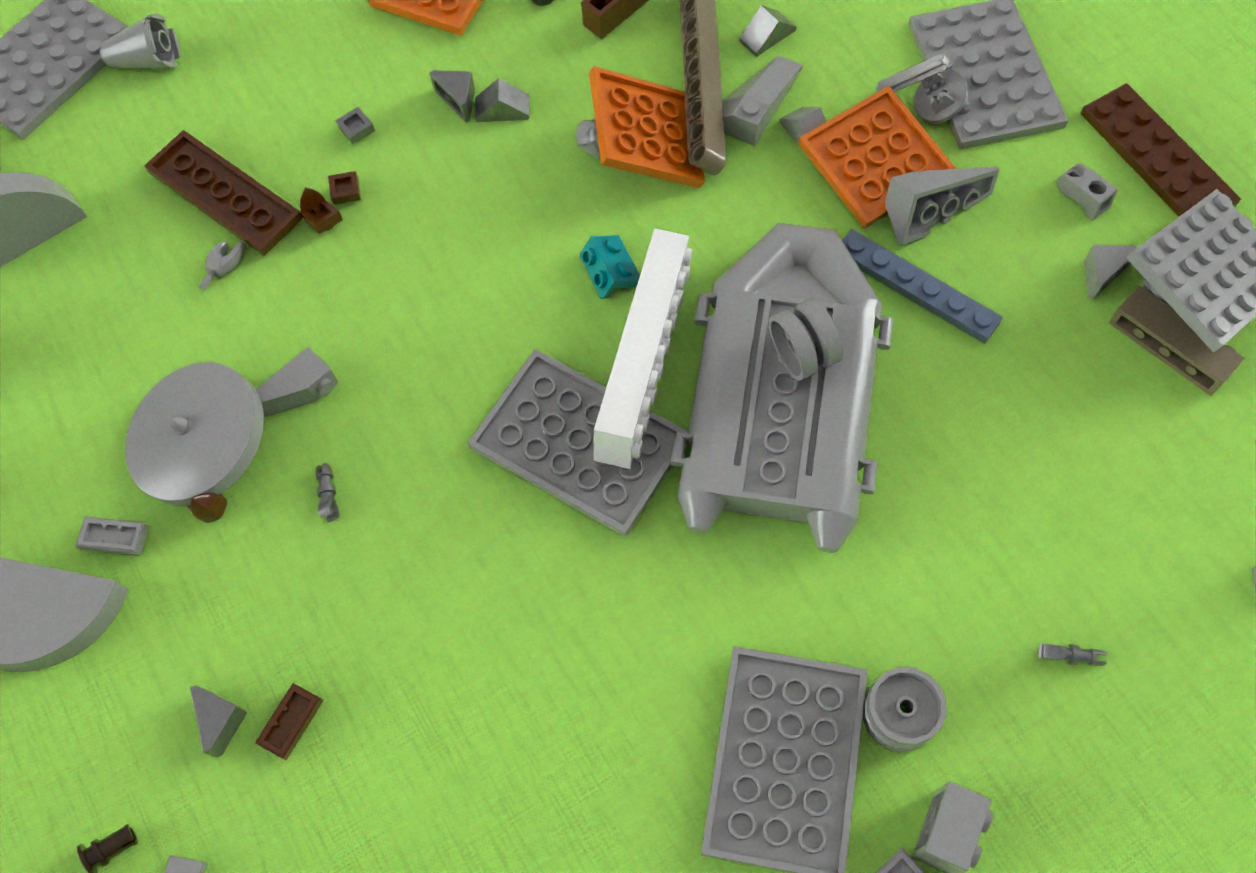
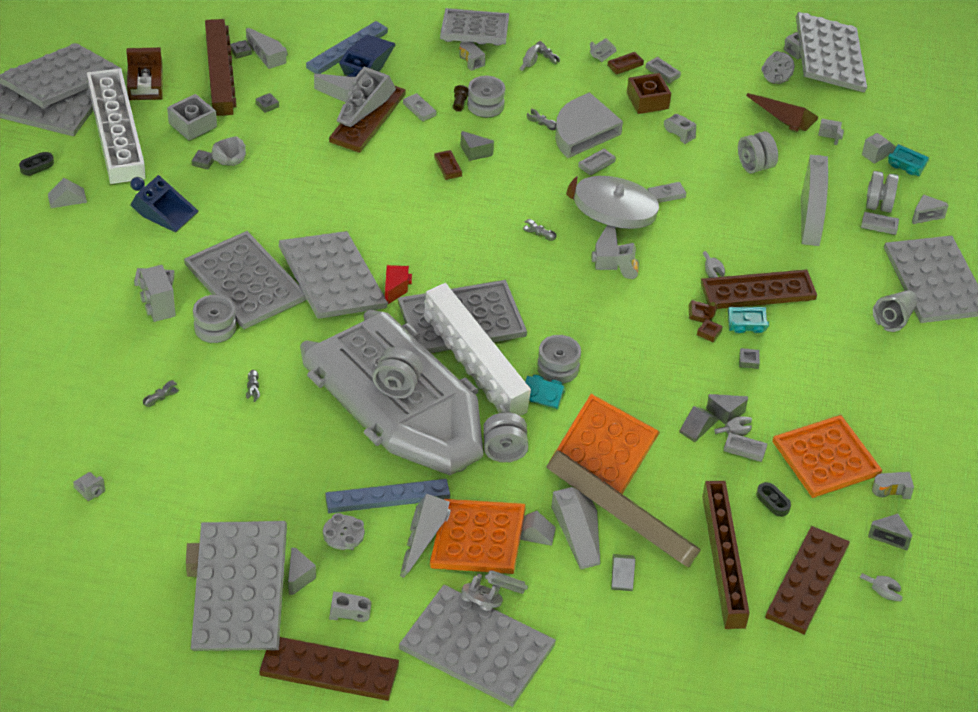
camera: 125 degrees right, 20 degrees down
(66, 686) = (541, 119): none -> flat silver piece
(77, 801) = (486, 96): none -> light grey wheel
(106, 411) = (668, 192): none -> light grey plate
(292, 163) = (747, 319): none -> teal bracket
(305, 330) = (626, 260): none -> light grey leg
(479, 71) = (736, 426): none -> light grey hand
(497, 45) = (745, 447): none -> light grey plate
(551, 276) = (559, 358): none -> light grey wheel
(599, 563) = (396, 282): none -> red slope
(663, 658) = (332, 274): none -> light grey plate
(731, 223) = (505, 437): none -> light grey wheel
(937, 563) = (253, 385): none -> flat silver piece
(1016, 252) = (351, 536): none -> light grey plate

